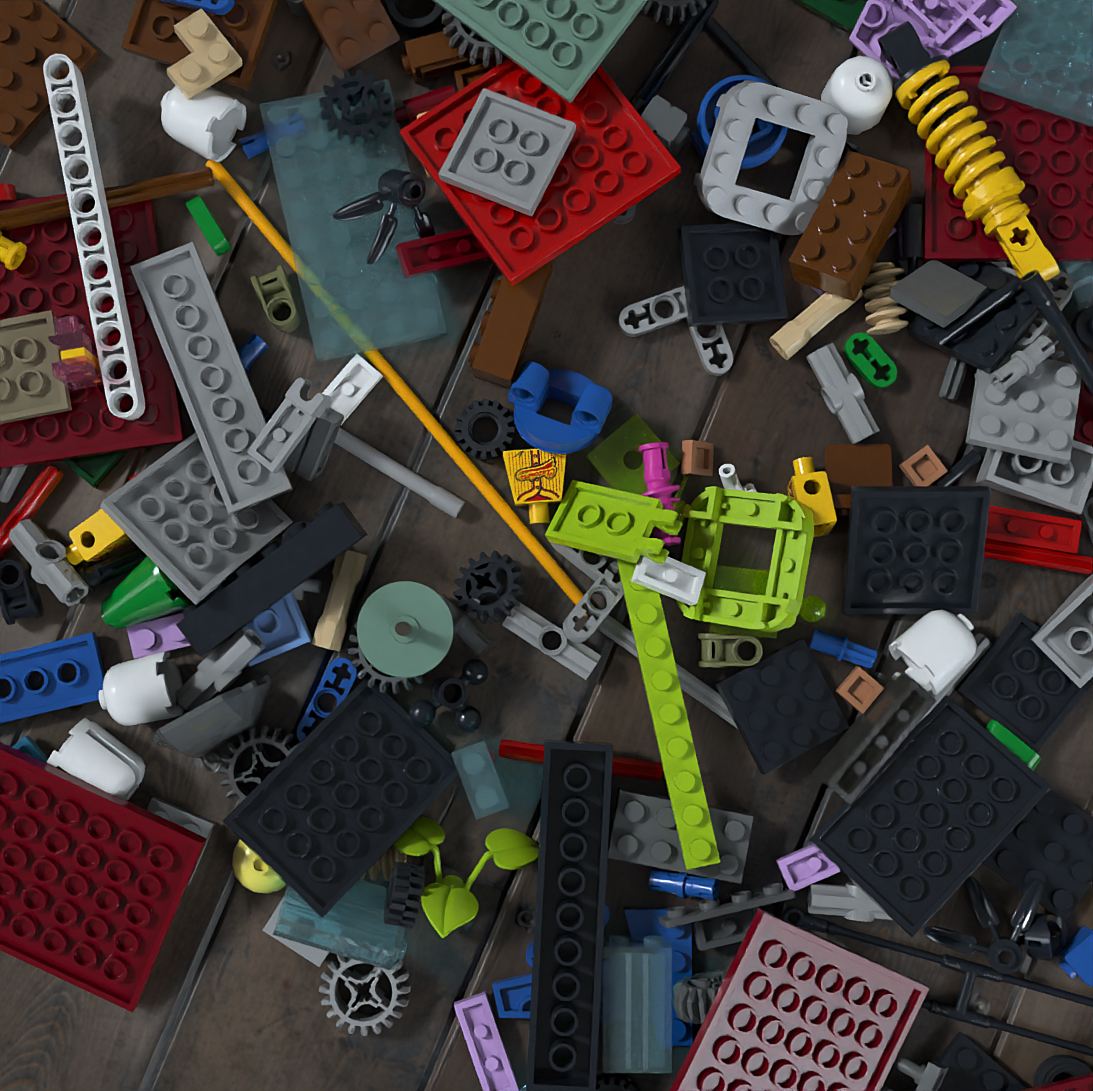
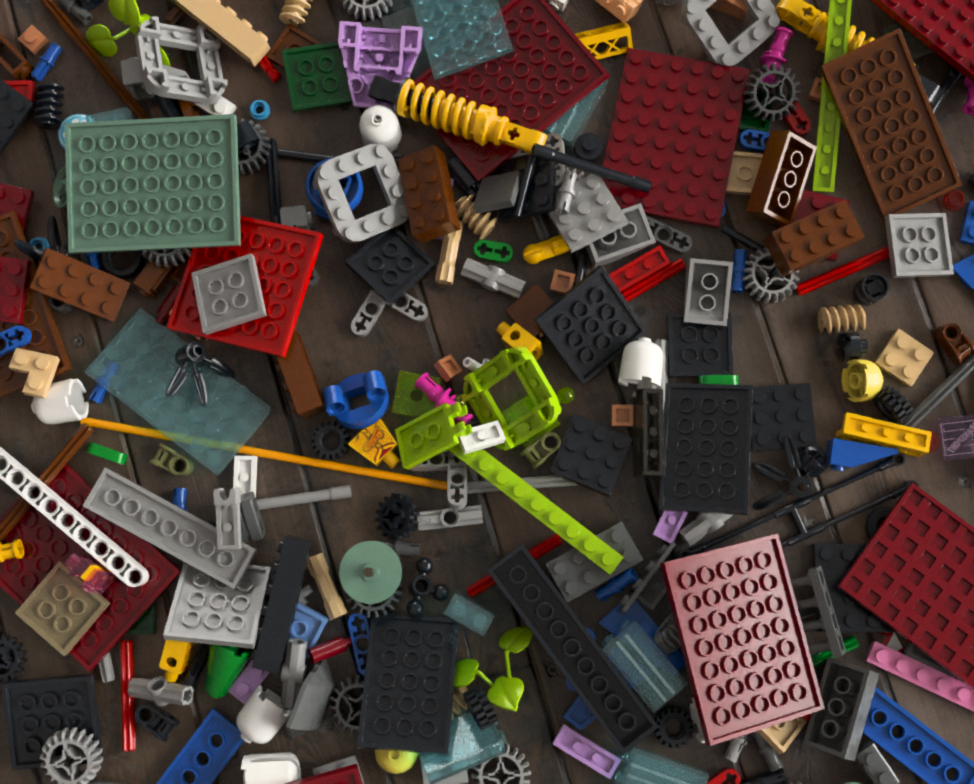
camera: 40 degrees left, 5 degrees down
(282, 676) = (328, 649): none -> dark red cylinder
(345, 97) = (125, 333): black gear -> none
(439, 253) = (236, 371): dark red plate -> none
(843, 649) = (597, 402): blue axle -> none
(937, 411) = (546, 249): none -> yellow piece

